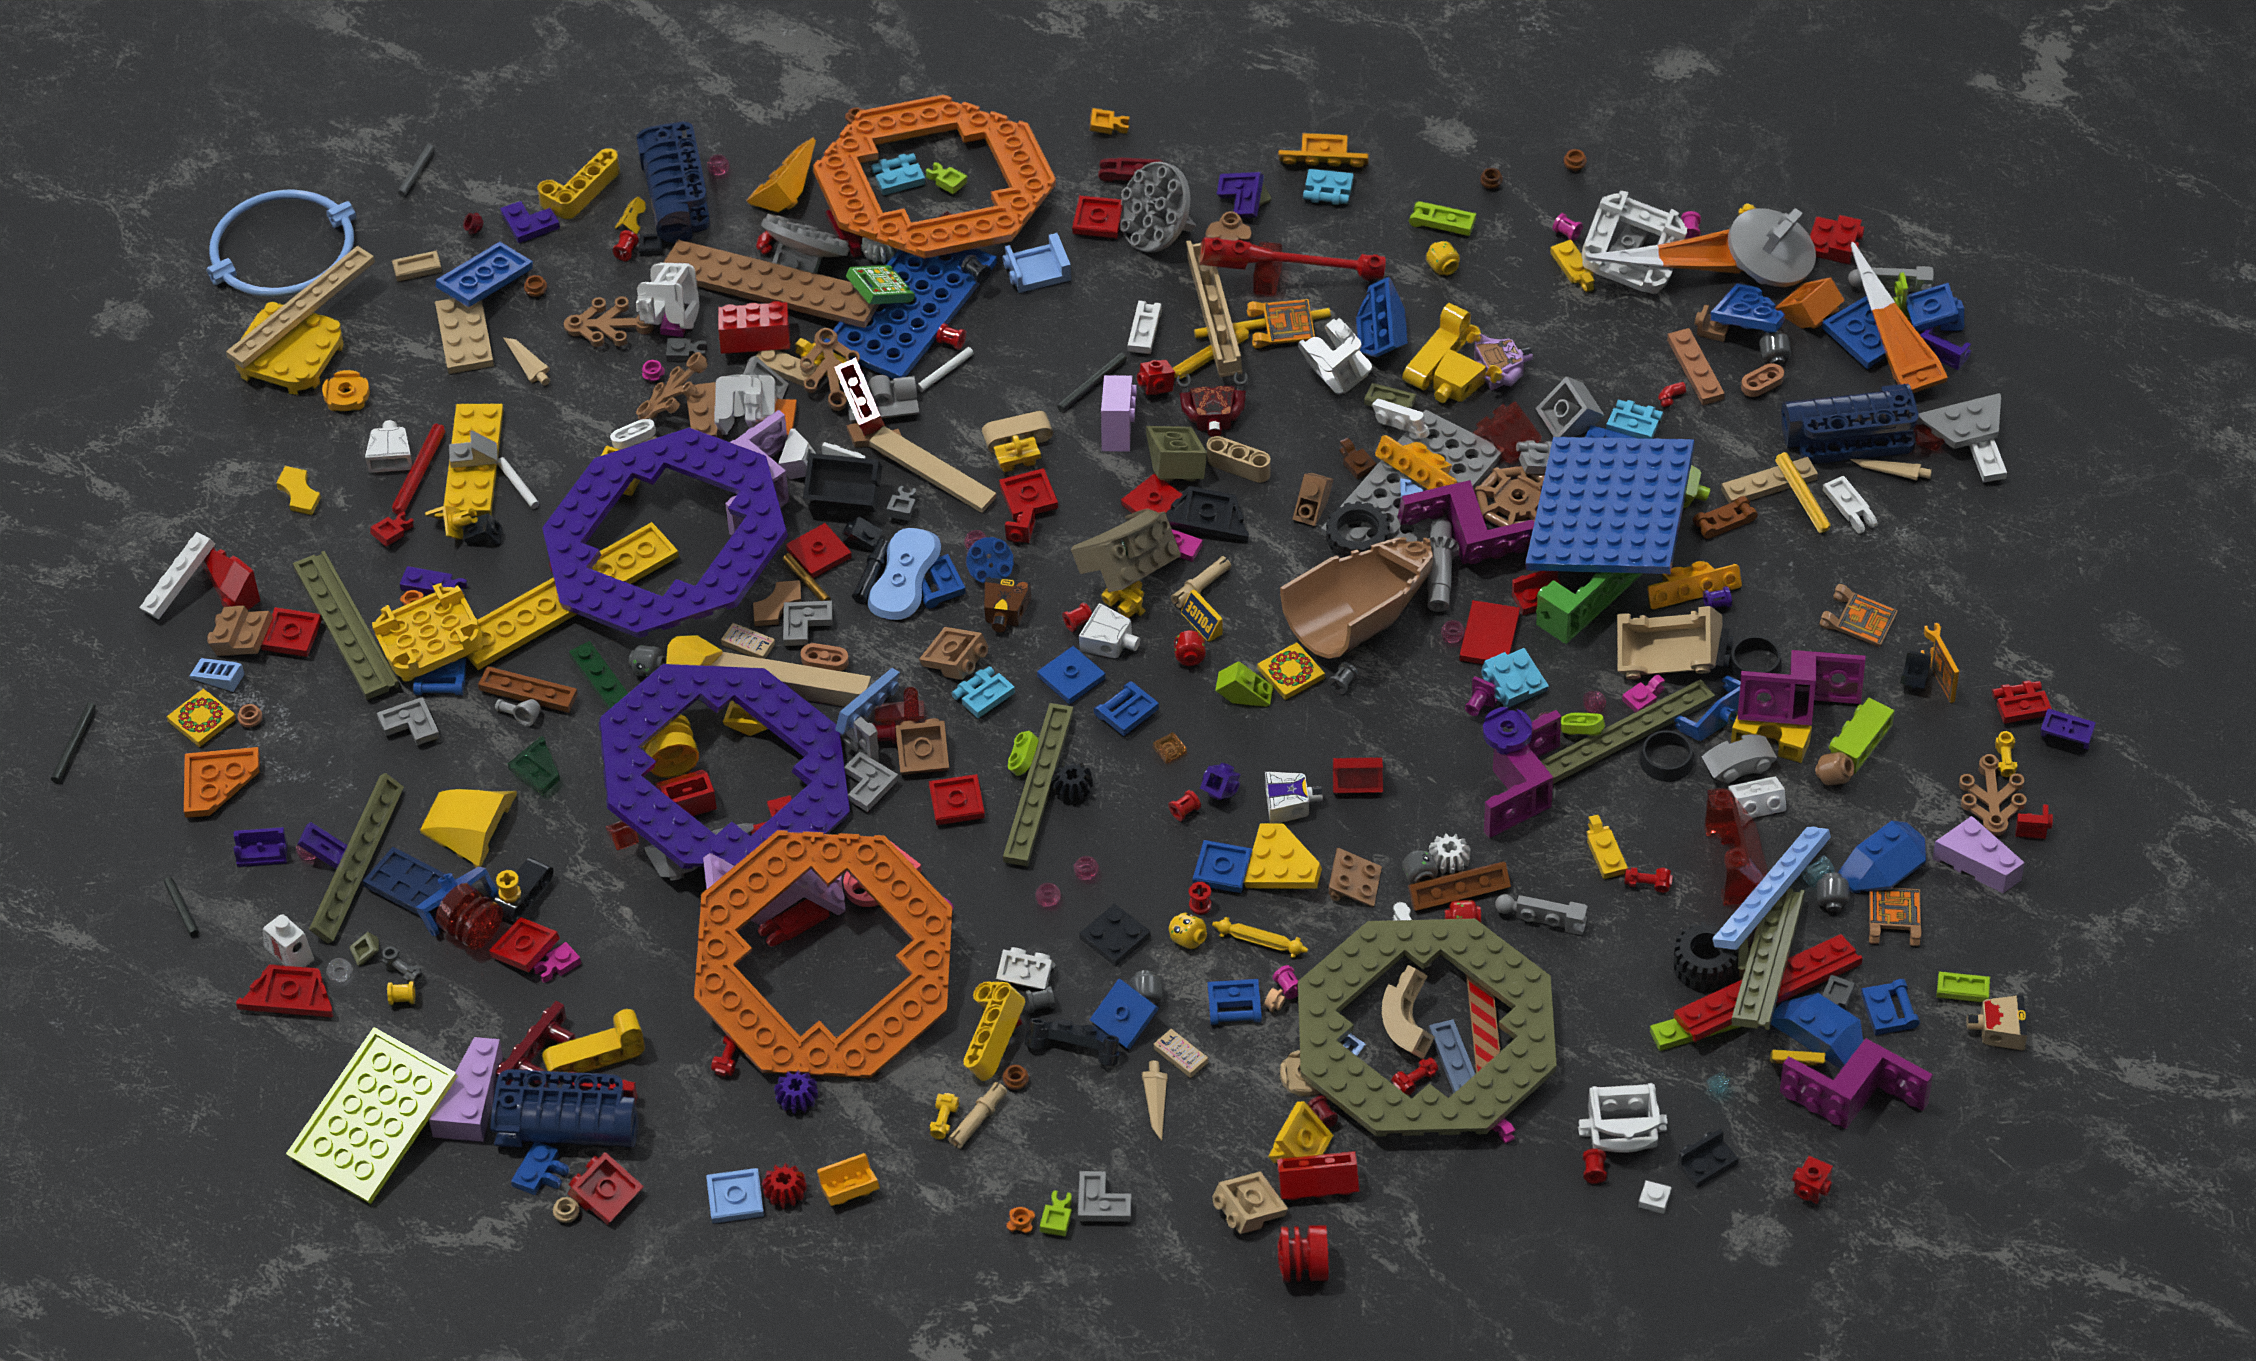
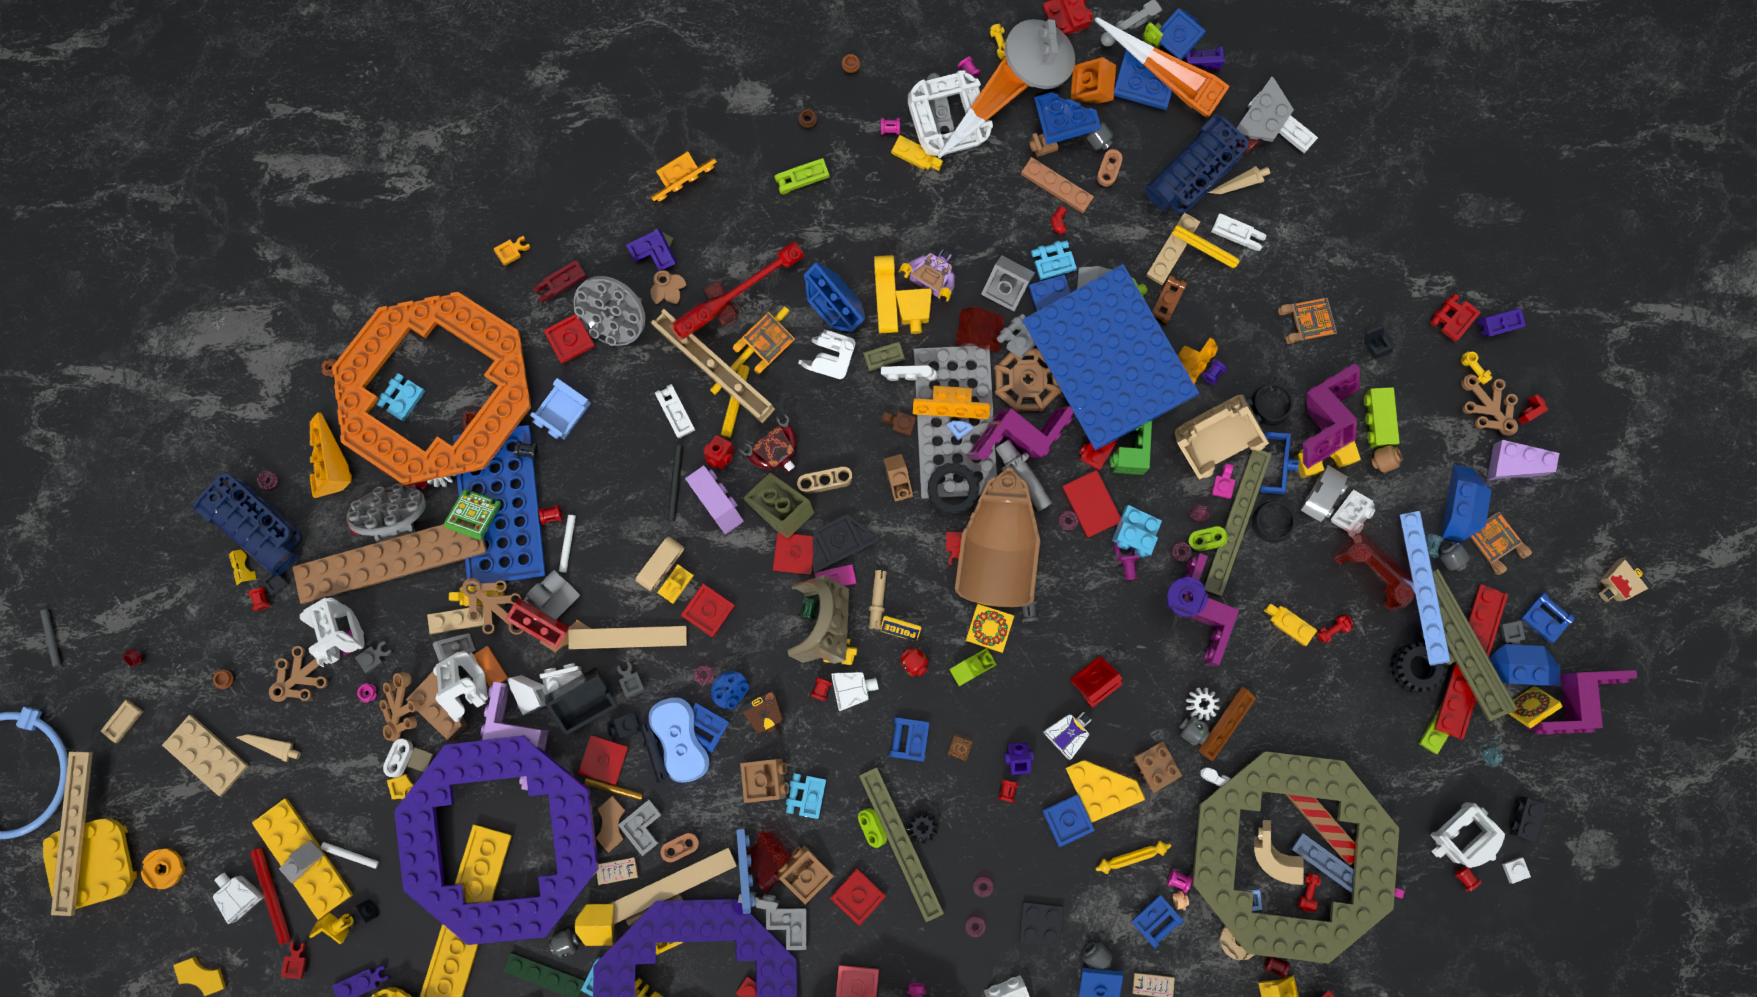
camera: 40 degrees left, 30 degrees up
(484, 274) = (179, 700): blue plate -> none
(528, 226) = (171, 630): dark purple plate -> none
(572, 197) = (181, 565): yellow beam -> none
(753, 327) = (411, 610): red brick -> none
(948, 179) = (439, 378): lime plate -> none
(1023, 528) = (726, 638): red bracket -> none
(1071, 675) = (851, 737): blue plate -> none
(1187, 930) = (1088, 890): yellow head -> none
(1205, 893) = (1081, 856): red bush -> none
(1328, 186) = (702, 196): medium azure plate -> none
(1443, 258) = (828, 211): yellow head -> none
(1463, 910) = (1247, 746): red head -> none
(1554, 914) = (1313, 696): light grey plate -> none
(1813, 1180) = (1605, 791): red brick -> none
(1942, 663) = (1394, 327): flag -> none
(1963, 987) = (1580, 570): lime plate -> none

